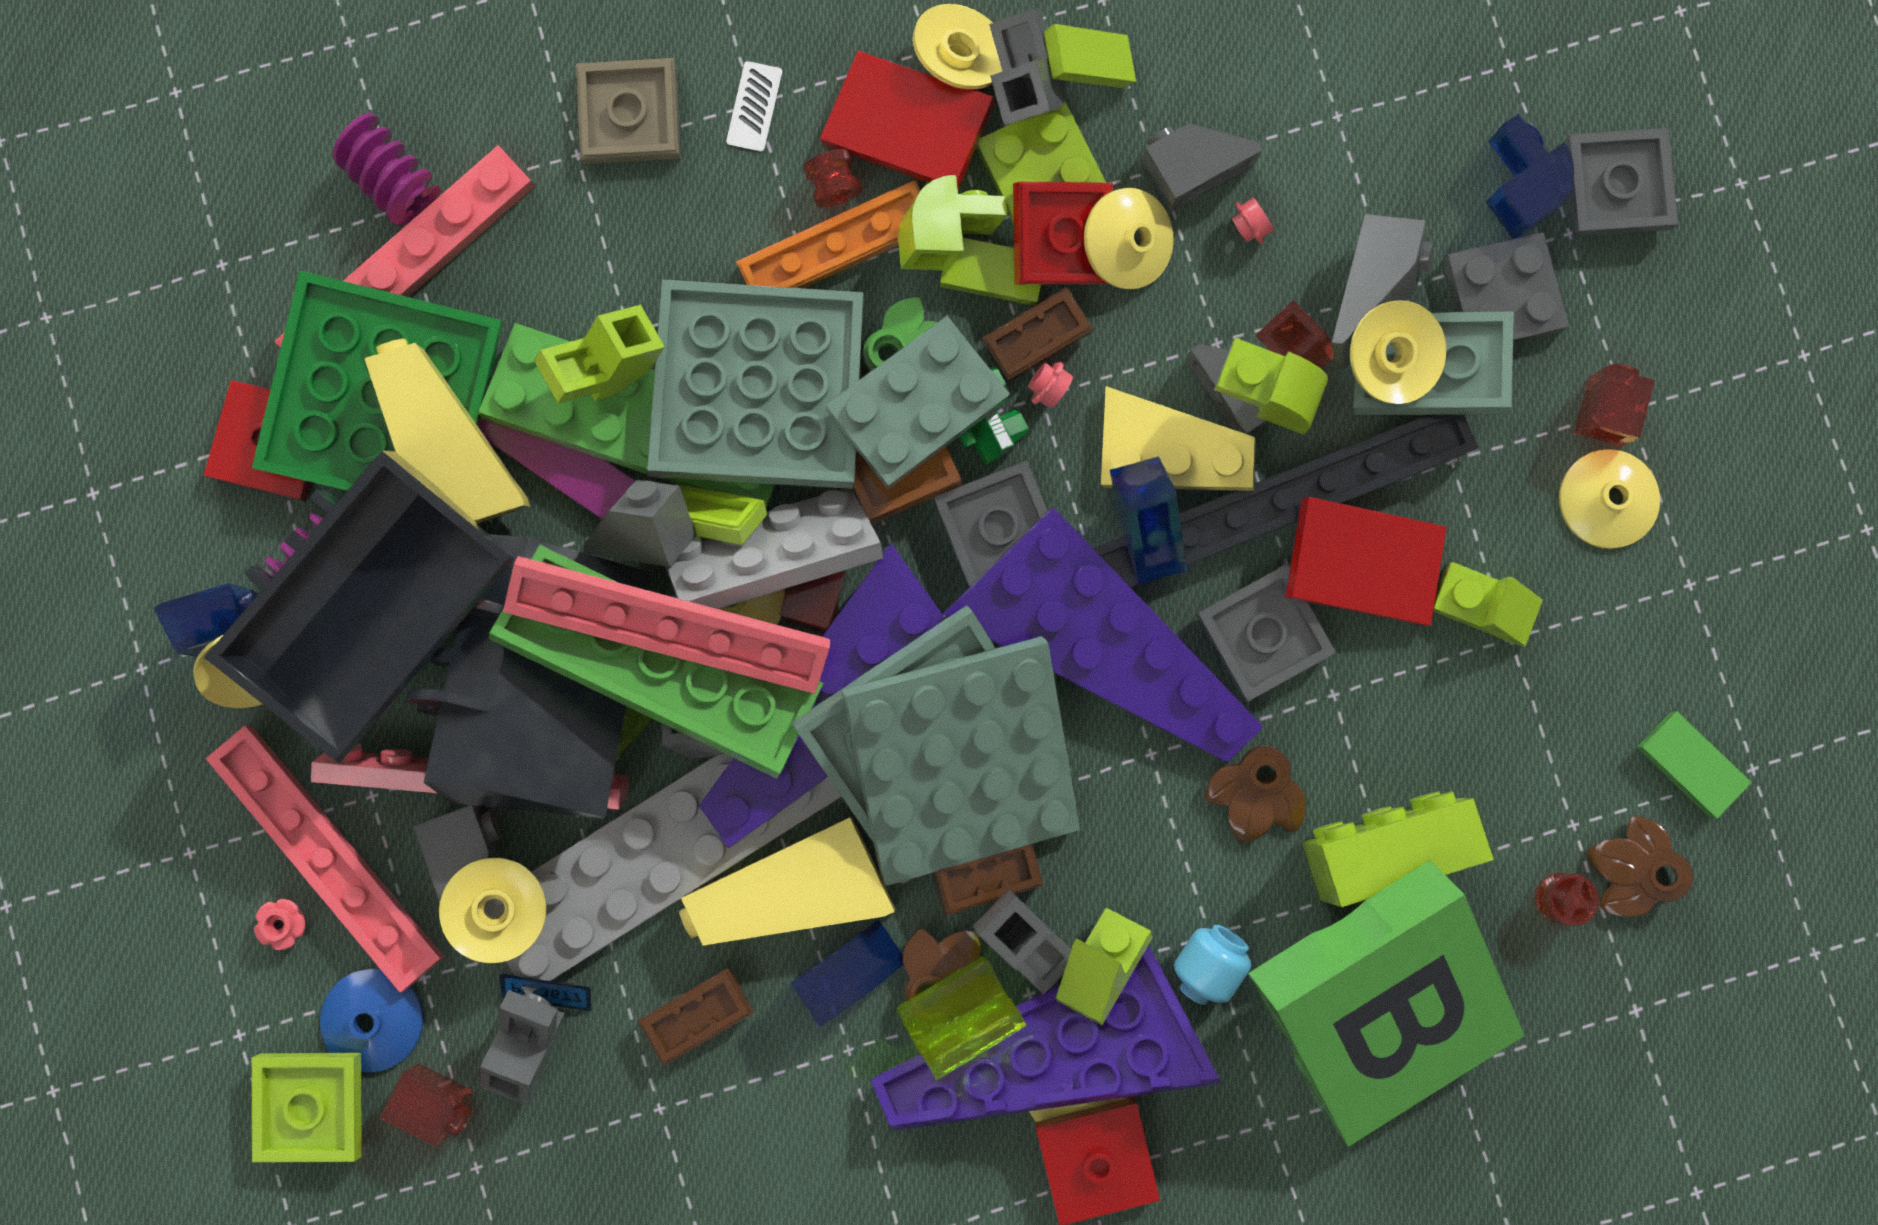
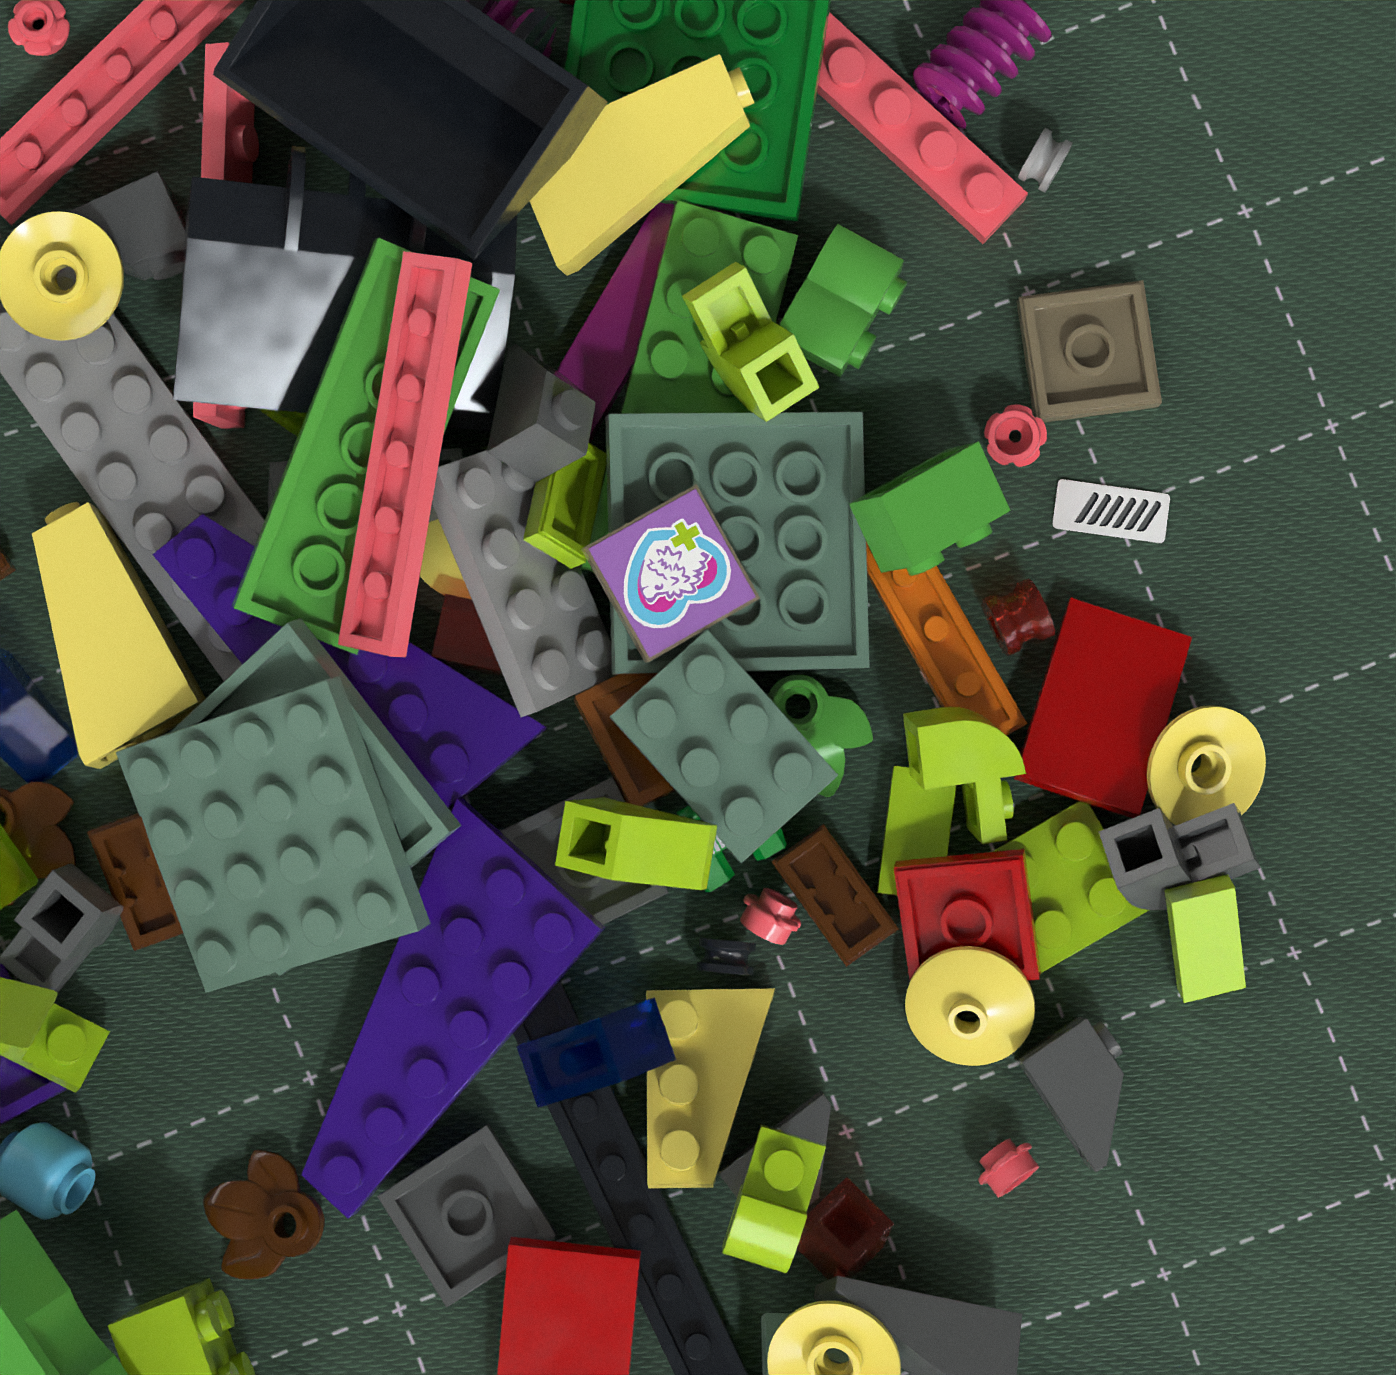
camera: 90 degrees right, 0 degrees up
(473, 129) = (1045, 160): none -> light grey bush
(566, 290) = (842, 299): none -> bright green brick
(703, 167) = (1032, 436): none -> coral plate
(743, 233) = (931, 509): none -> bright green brick
(779, 431) = (670, 573): none -> tile
(990, 473) = (635, 844): none -> lime slope
(1078, 420) = (726, 956): none -> black bush

